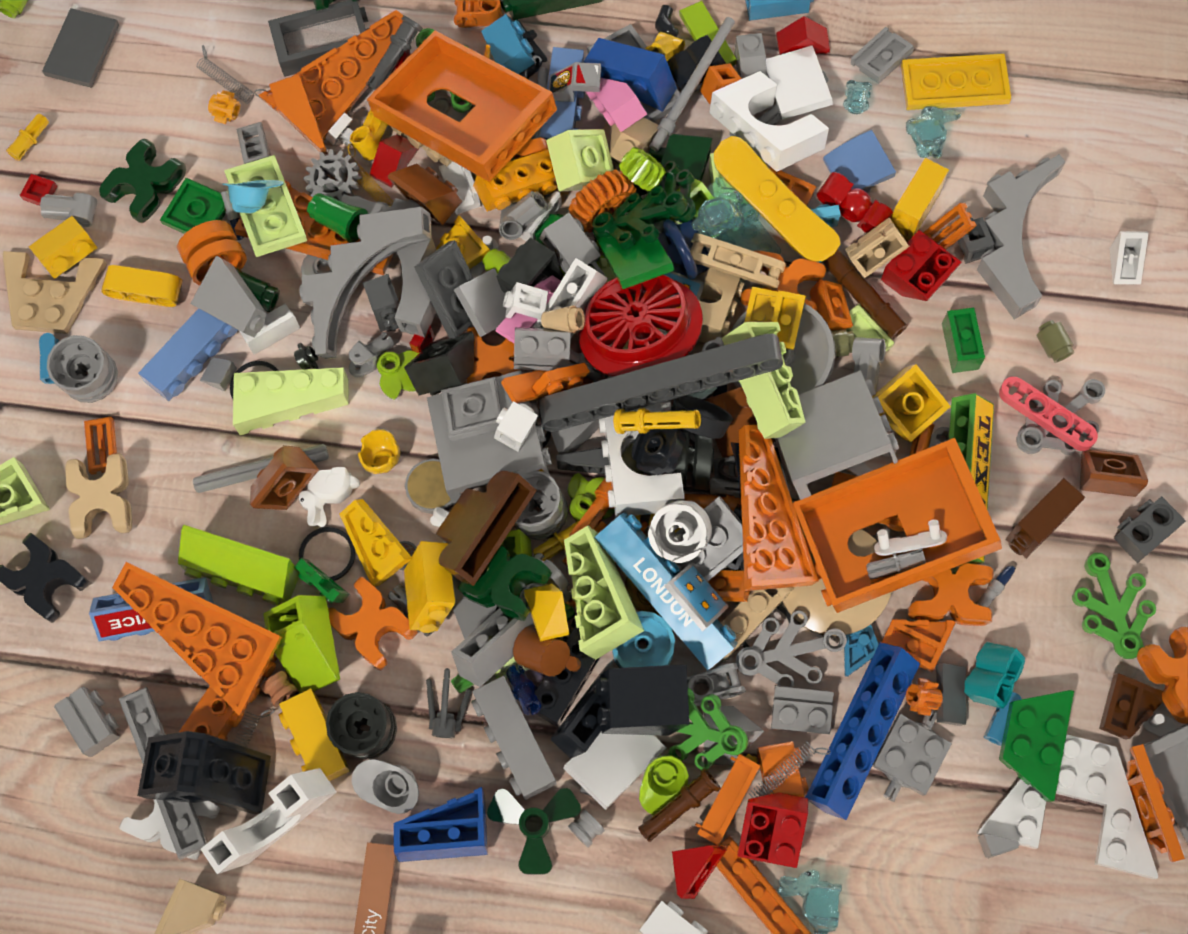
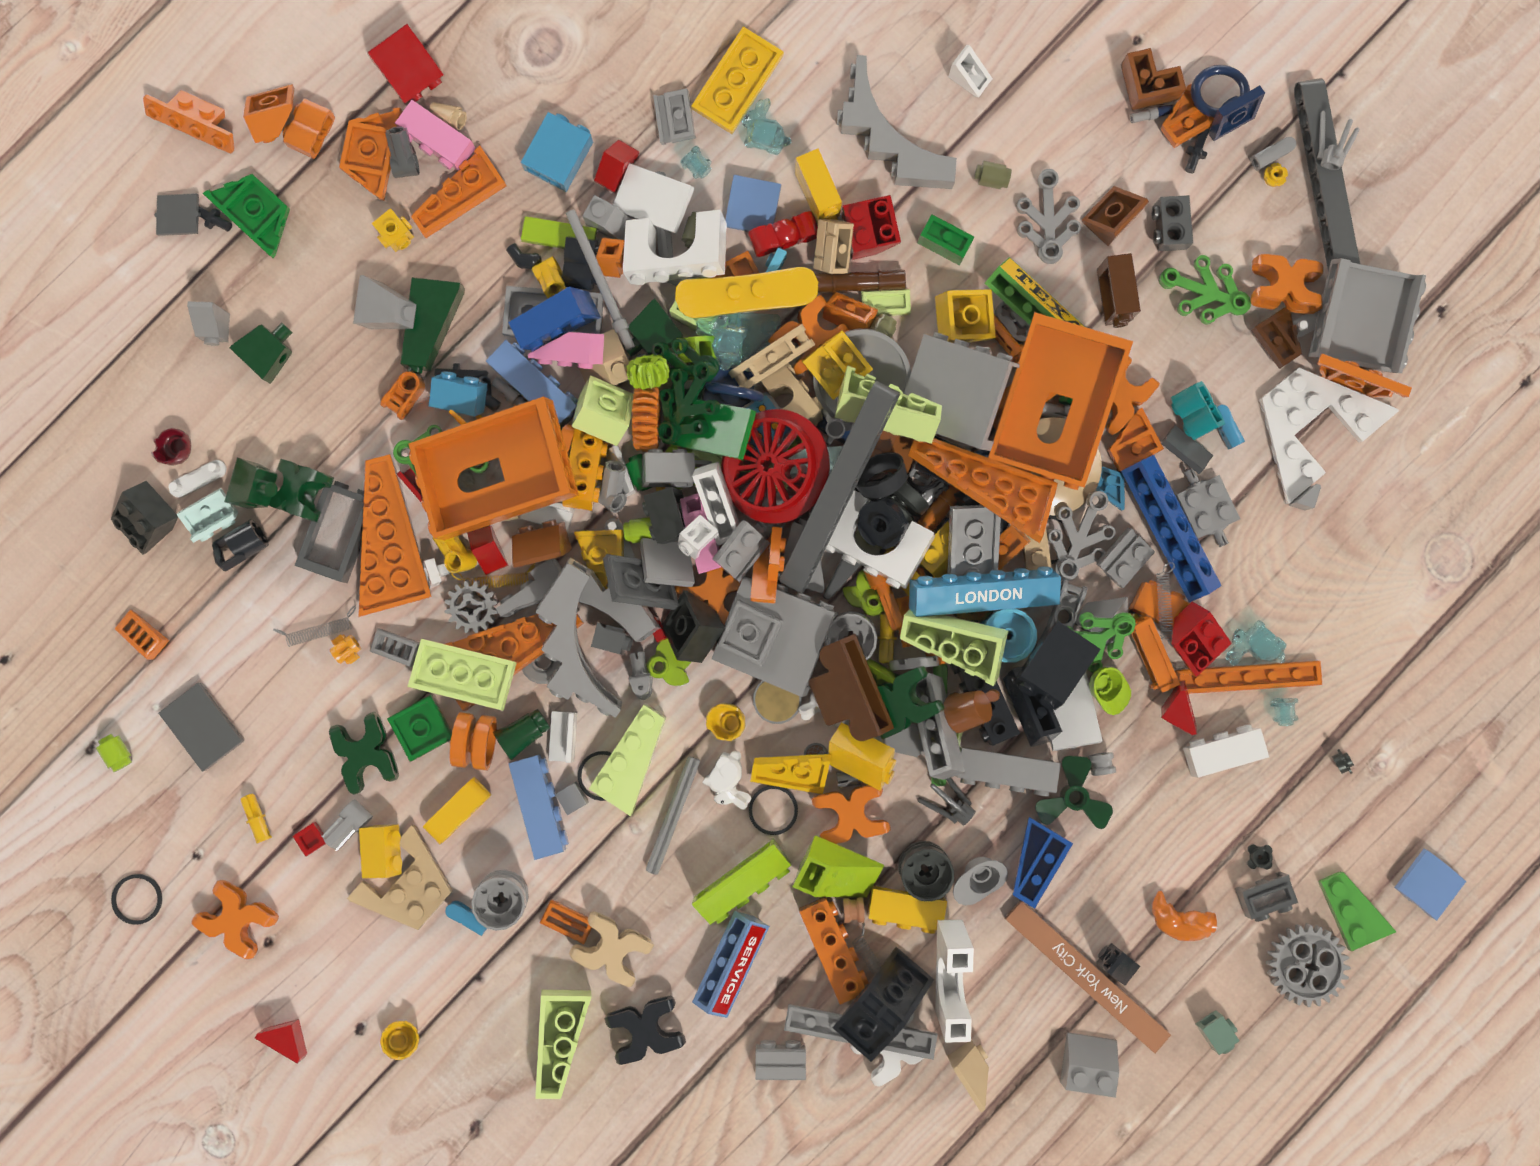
camera: 60 degrees left, 15 degrees up
(211, 640) = (789, 940): orange wing -> none
(229, 298) = (530, 754): light grey slope -> none
(232, 216) = (443, 702): light grey piece -> none
(250, 195) = (449, 679): medium azure piece -> none
(282, 479) = (698, 808): dark orange slope -> none
(294, 106) = (393, 596): orange slope -> none
(306, 357) = (608, 724): pearl dark grey plate -> none
(313, 575) = (797, 829): green wing -> none
(336, 215) = (514, 626): green plant -> none
(399, 44) = (399, 478): dark grey pin -> none
(515, 425) = (793, 613): white brick -> none
(523, 690) = (983, 741): clear blue pin -> none
(547, 611) = (946, 687): yellow slope -> none
(564, 319) = (734, 520): tan cone -> none
(575, 78) = (533, 367): slope -> none
(644, 420) = (859, 519): yellow pin -> none
(680, 547) = (959, 554): white brick -> none
(689, 797) = (1133, 679): reddish brown pin -> none
(696, 596) = (1010, 576): slope -> none
(868, 355) = (910, 317): light grey piece -> none
(895, 564) = (1087, 421): light grey axle -> none
(922, 540) = (1078, 402): white piece -> none
(924, 696) = (1178, 469): orange gear -> none
(964, 219) = (860, 165): orange tile -> none
(982, 241) = (877, 162): dark grey brick -> none
(996, 586) = (1136, 362): light grey piece -> none
(1036, 740) = (1259, 417): green wing -> none
(1050, 409) = (1041, 221): coral beam -> none

